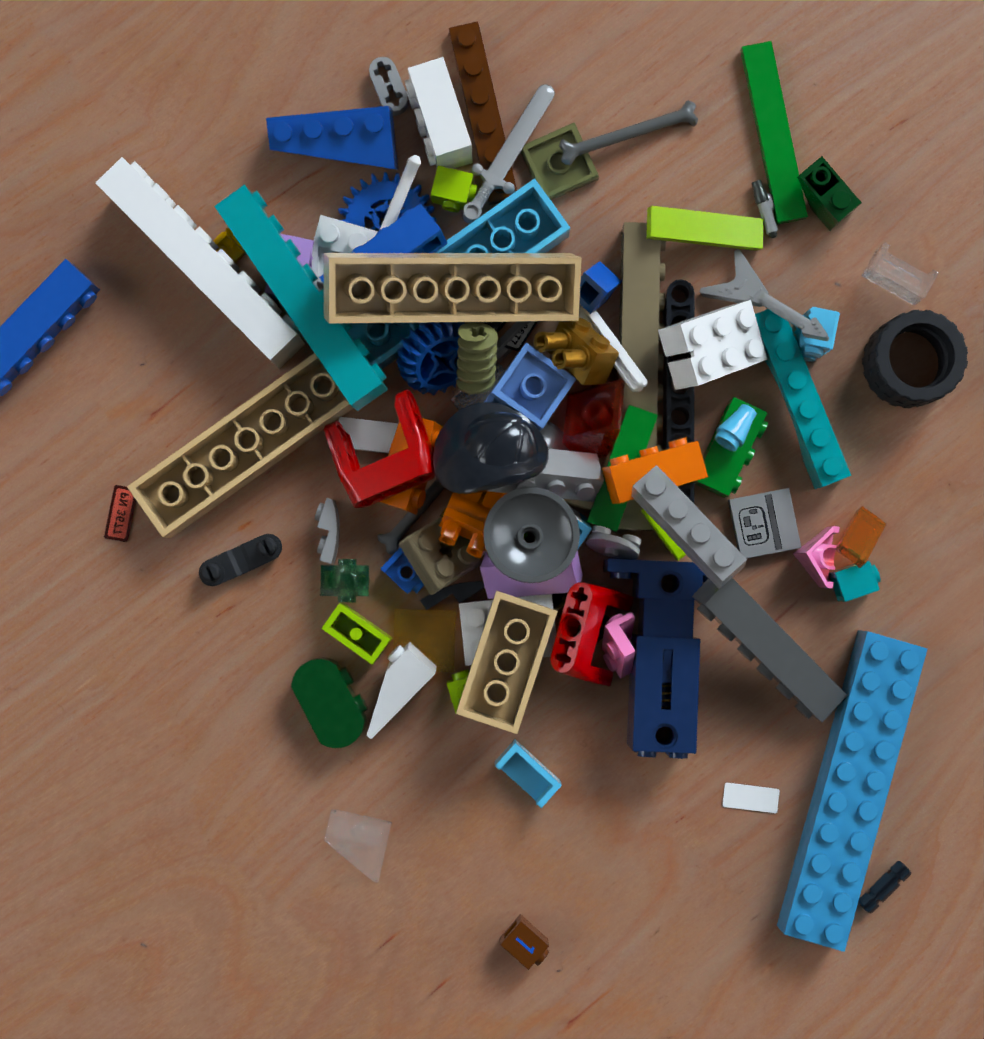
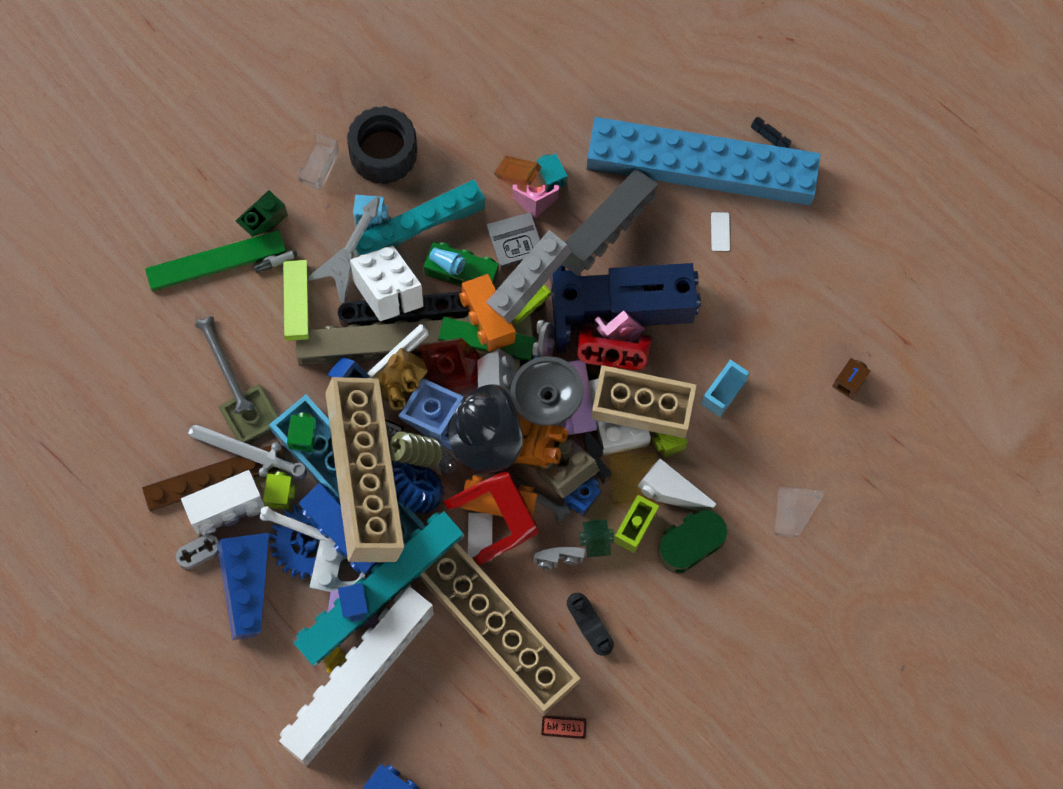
camera: 100 degrees left, 15 degrees down
(277, 259) = (354, 602): none -> blue brick
(515, 216) = (302, 432): none -> green brick

